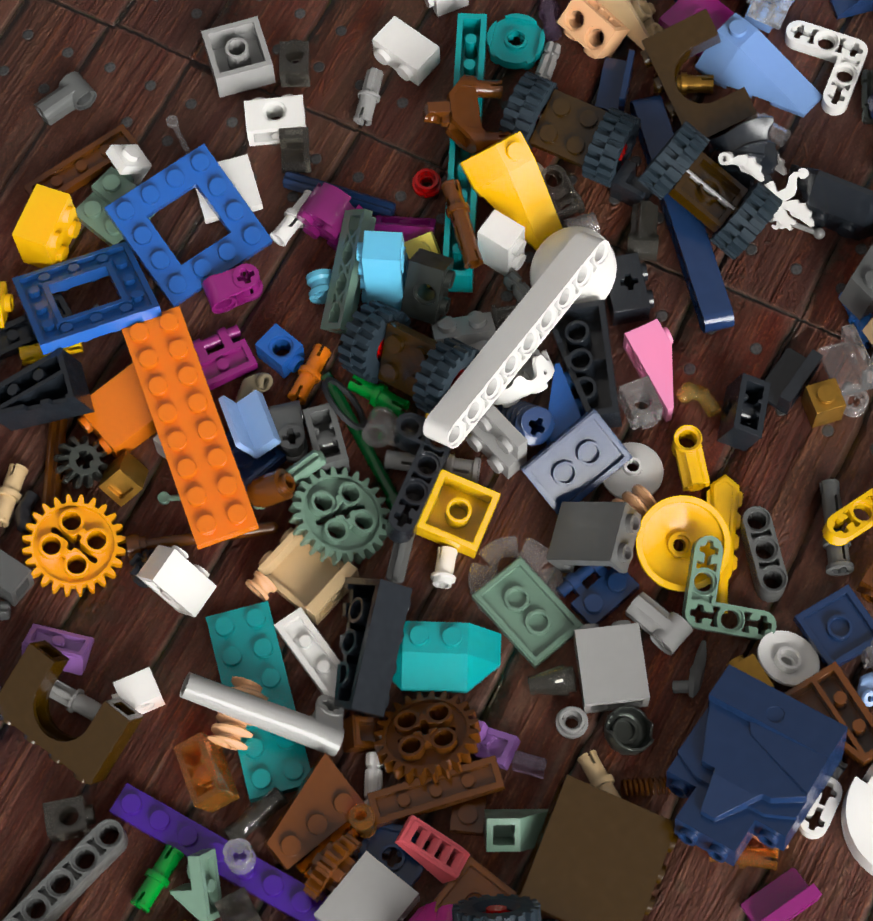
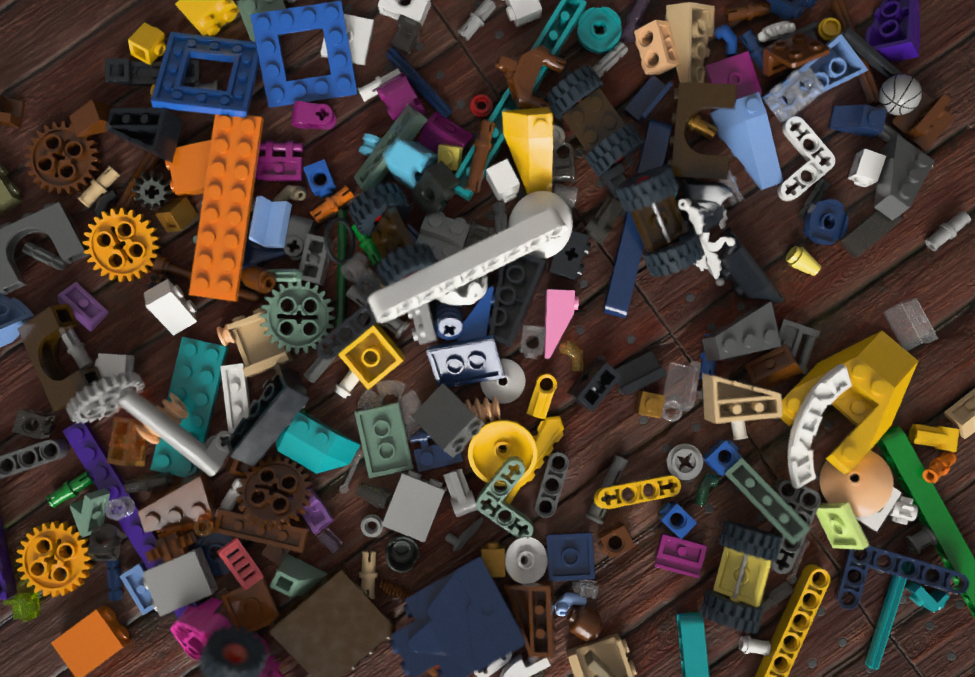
camera: 25 degrees right, 20 degrees up
(152, 722) = (103, 397): none -> light grey gear
(510, 697) = (344, 488): none -> clear hinge

